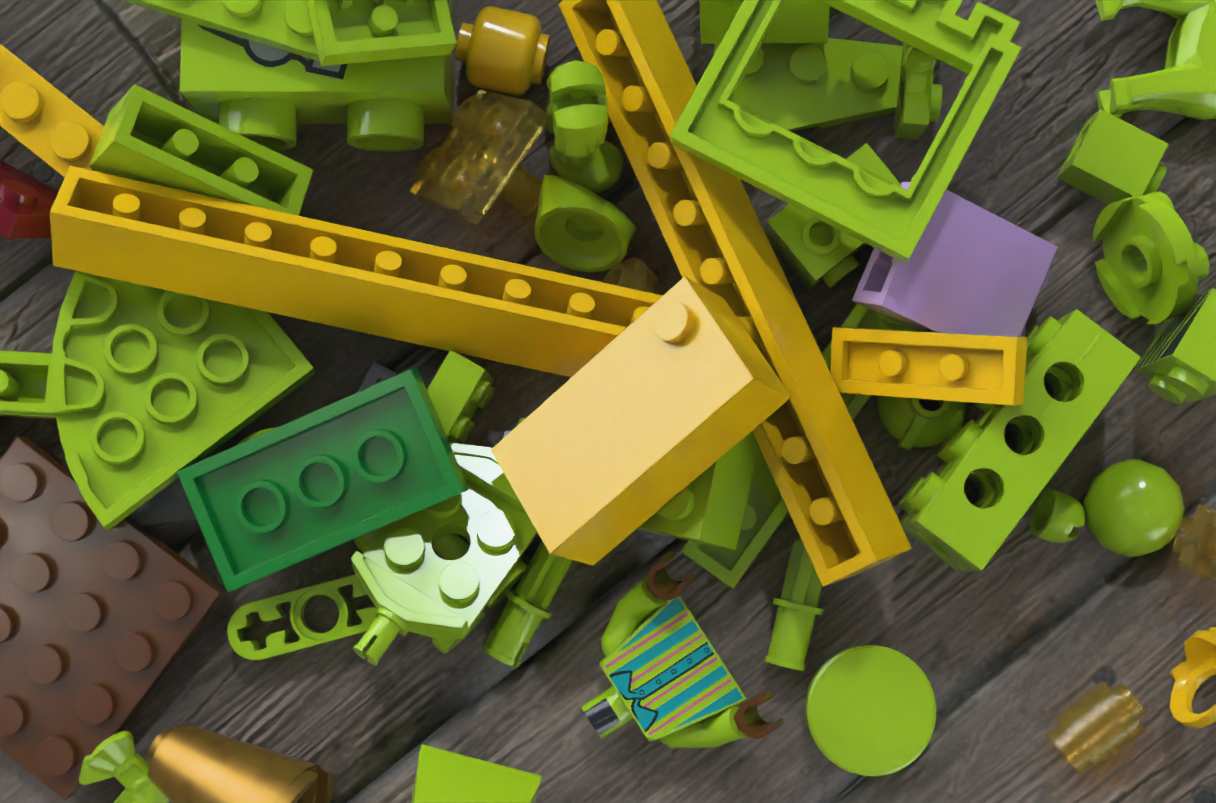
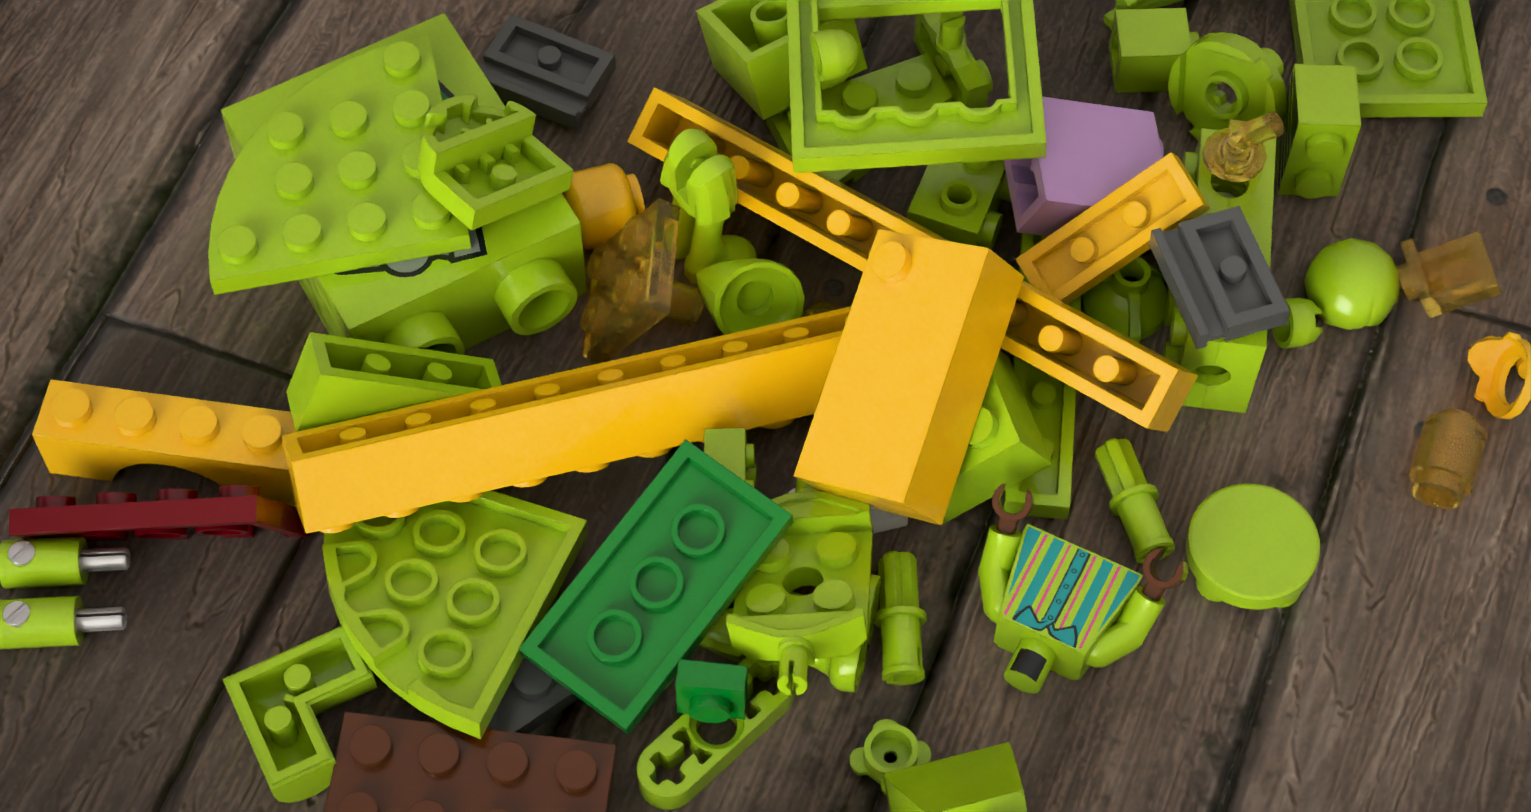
camera: 30 degrees left, 25 degrees down
(317, 598) = (711, 690): none -> green plate
(454, 703) = (886, 738): none -> lime plate
(768, 51) = (833, 53): none -> lime hinge
(979, 485) = (1219, 277): none -> dark grey plate
(1087, 363) = (1239, 151): none -> clear yellow plate

